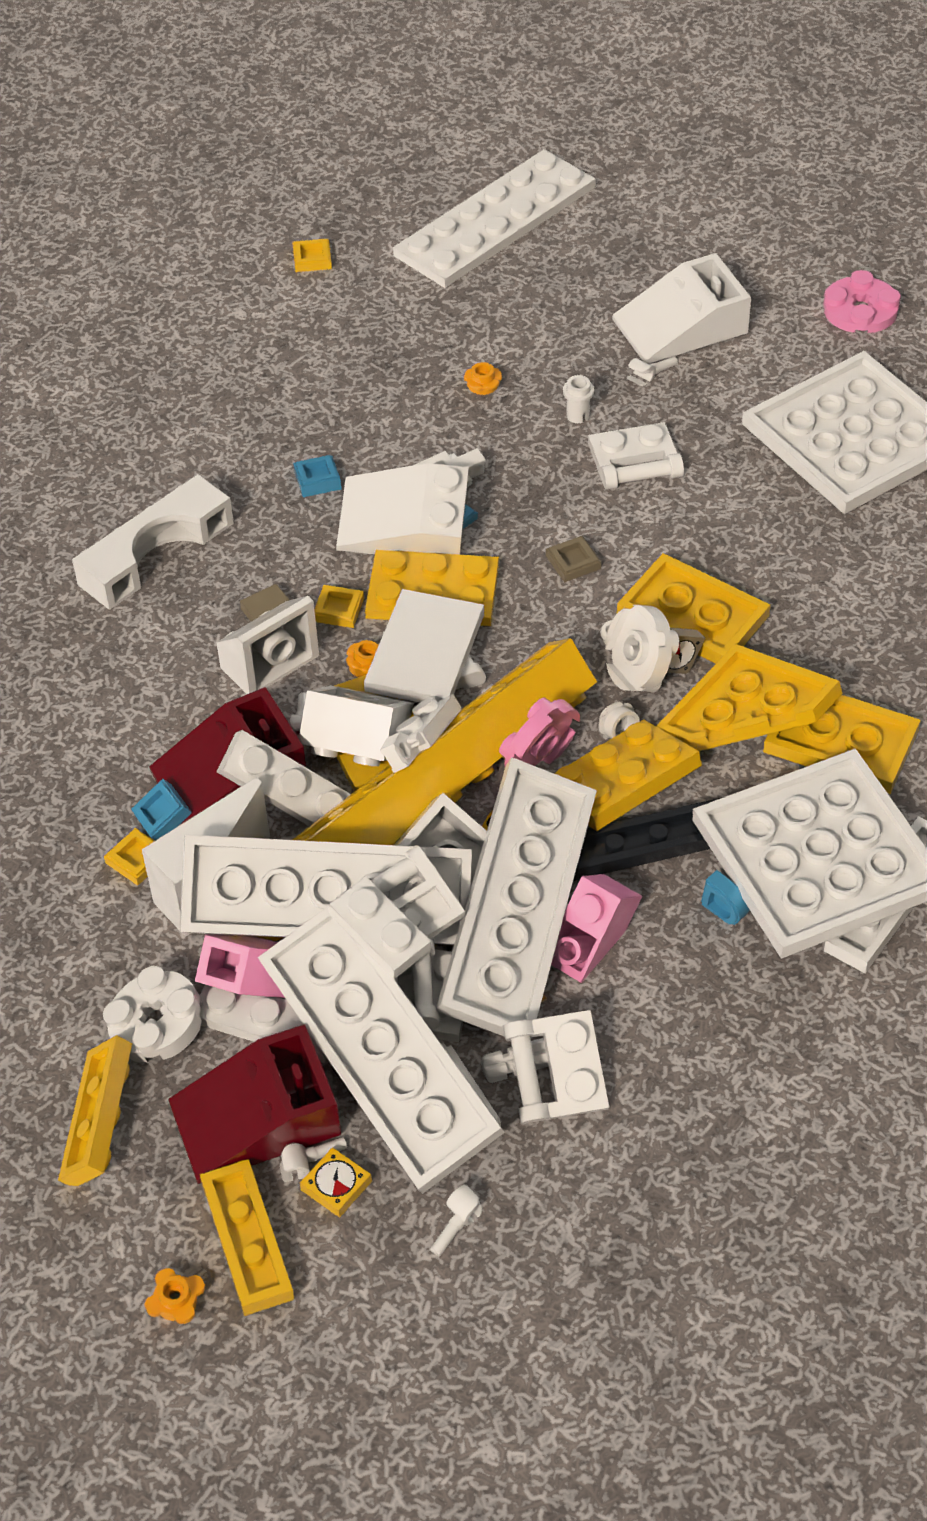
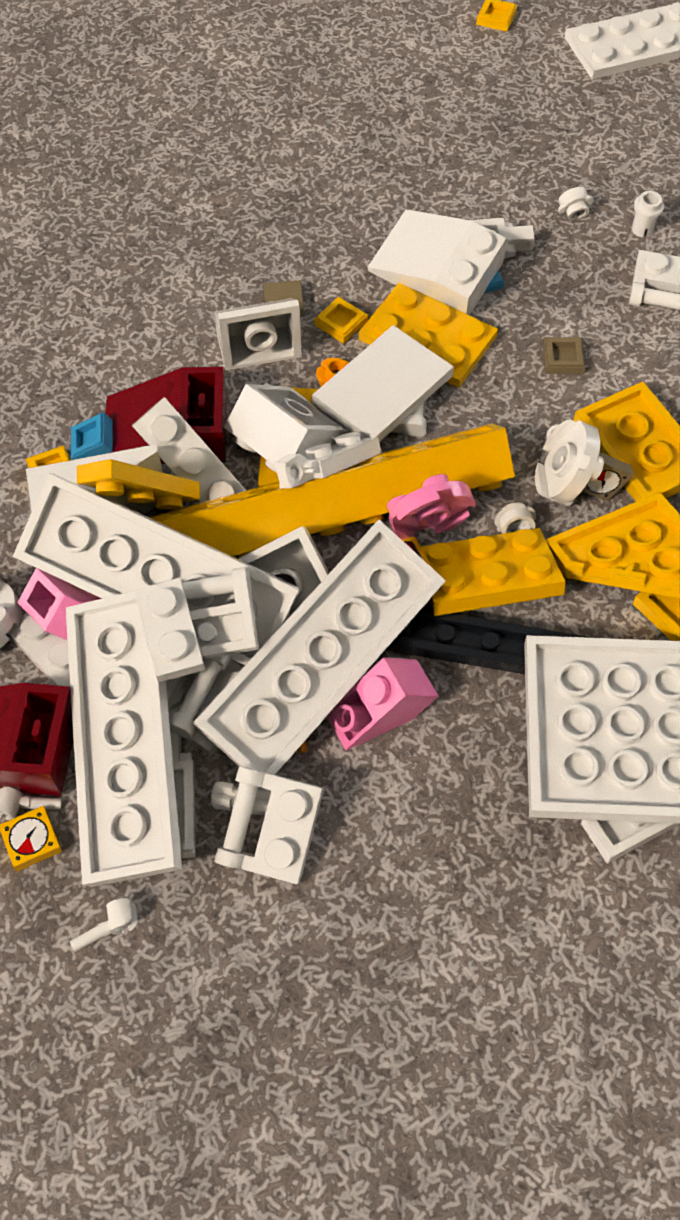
camera: 25 degrees right, 10 degrees up
(188, 513) = (262, 193): white arch -> none
(264, 817) = (138, 483): none -> yellow plate
(317, 475) = (389, 200): dark azure tile -> none
(482, 378) = (577, 167): light orange plate -> none
(502, 413) = (575, 203): none -> white plate
(724, 898) = (513, 731): dark azure tile -> none

